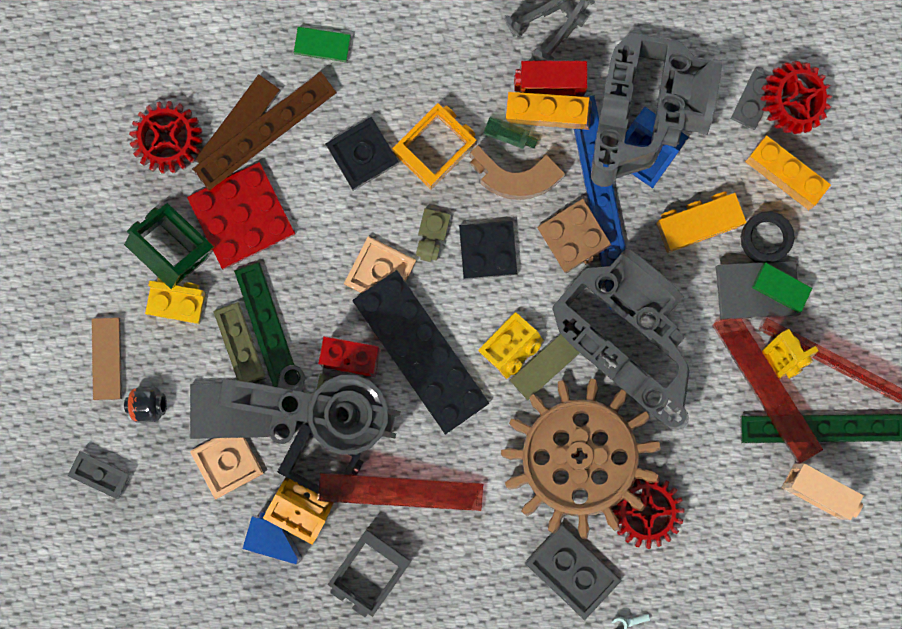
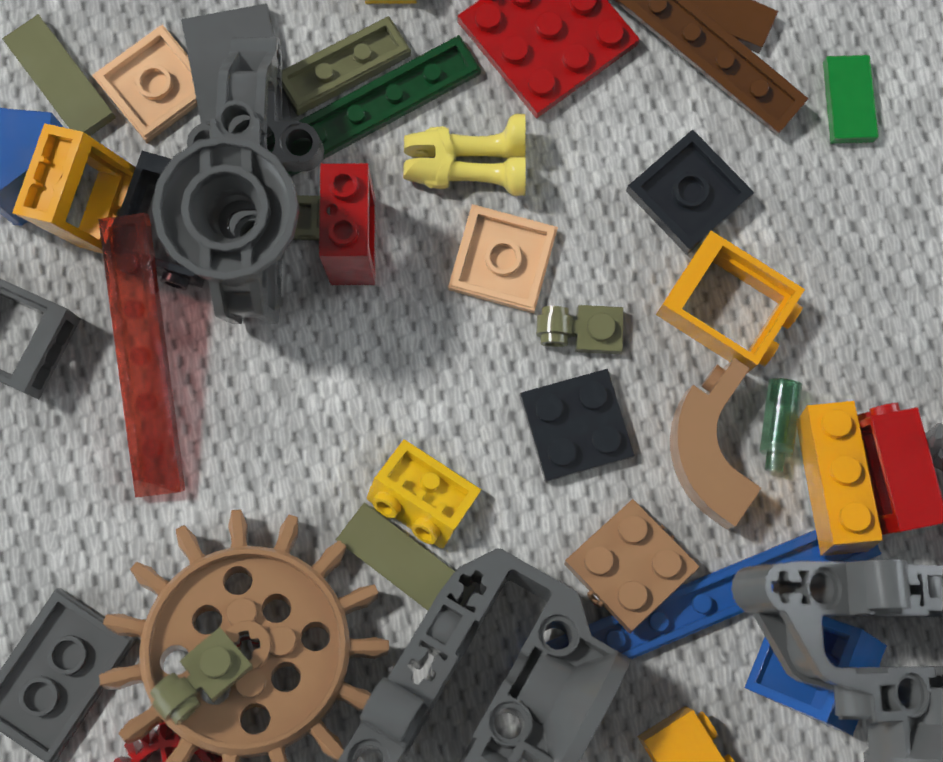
camera: 80 degrees right, 5 degrees down
(211, 520) = (58, 77): none -> olive tile
(300, 295) = (445, 148): none -> light yellow piece
(420, 352) = (383, 347): black plate -> none
(589, 473) = (212, 667): none -> olive plate

